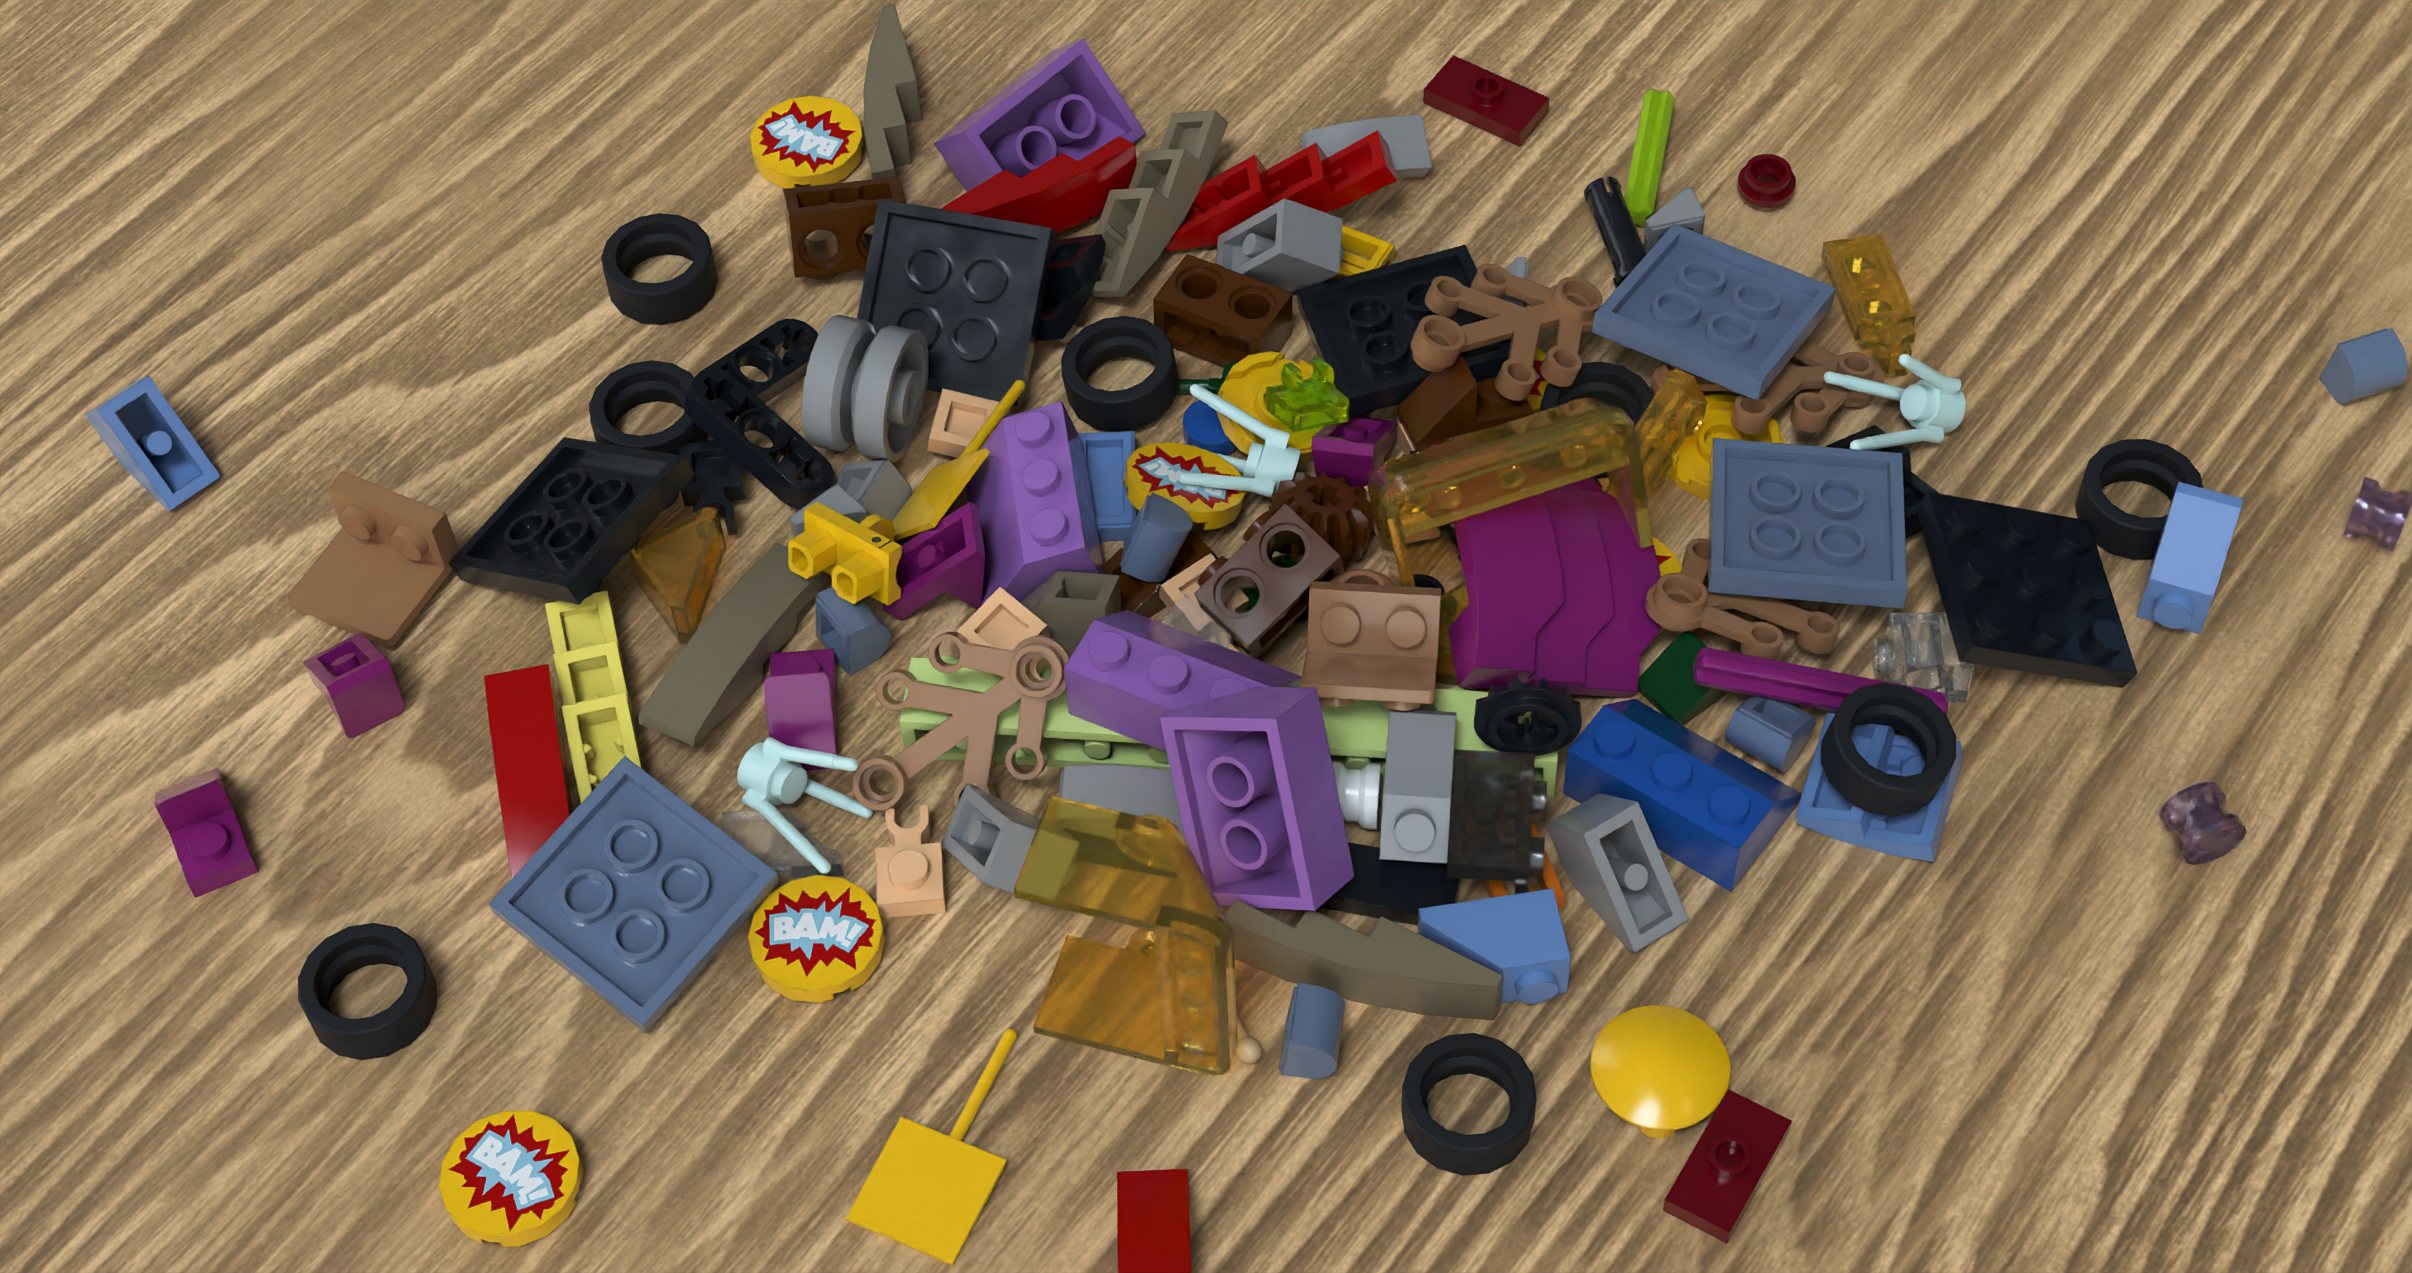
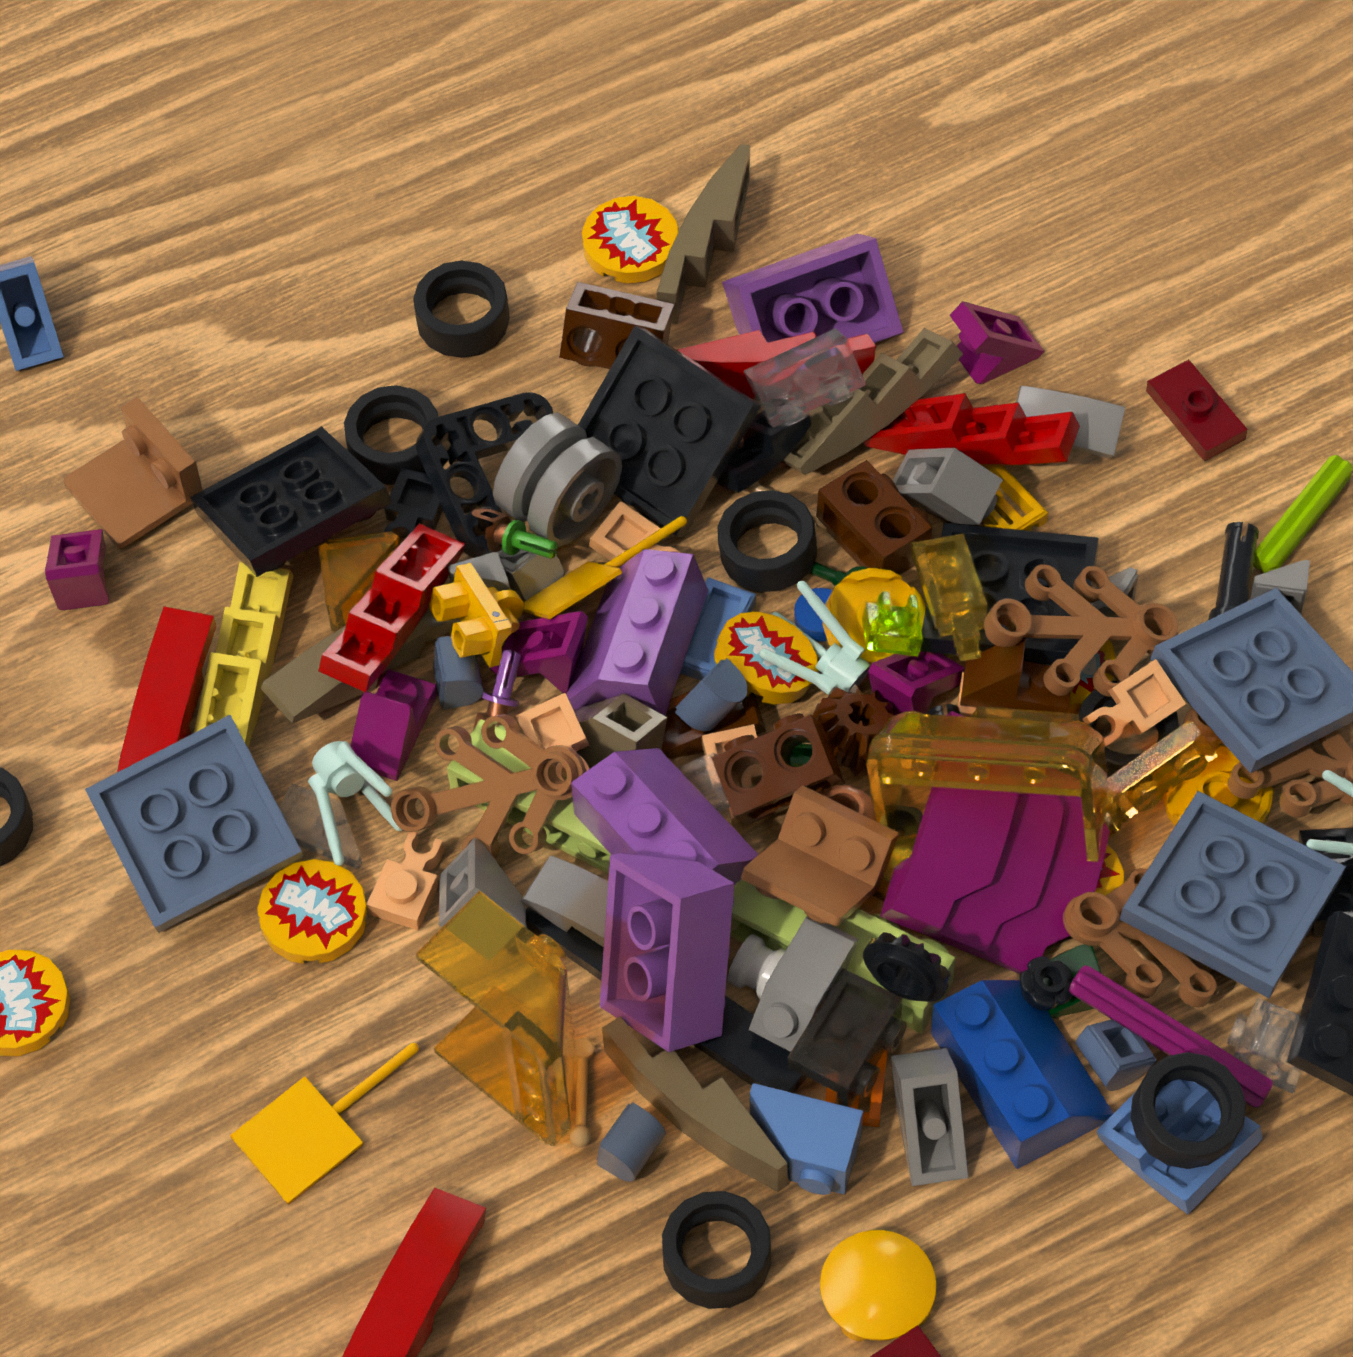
camera: 25 degrees right, 5 degrees up
(749, 583) = (390, 608): none -> red slope
(846, 465) = (514, 536): none -> bright green piece
(915, 633) = (501, 698): none -> medium lavender piece
(1087, 190) = (805, 378): none -> clear brick
(1249, 106) = (992, 341): none -> magenta slope
(1354, 342) = (952, 591): none -> clear yellow hinge
(1610, 368) = (1140, 700): none -> light nougat plate
(1664, 688) = (1039, 994): none -> black plate

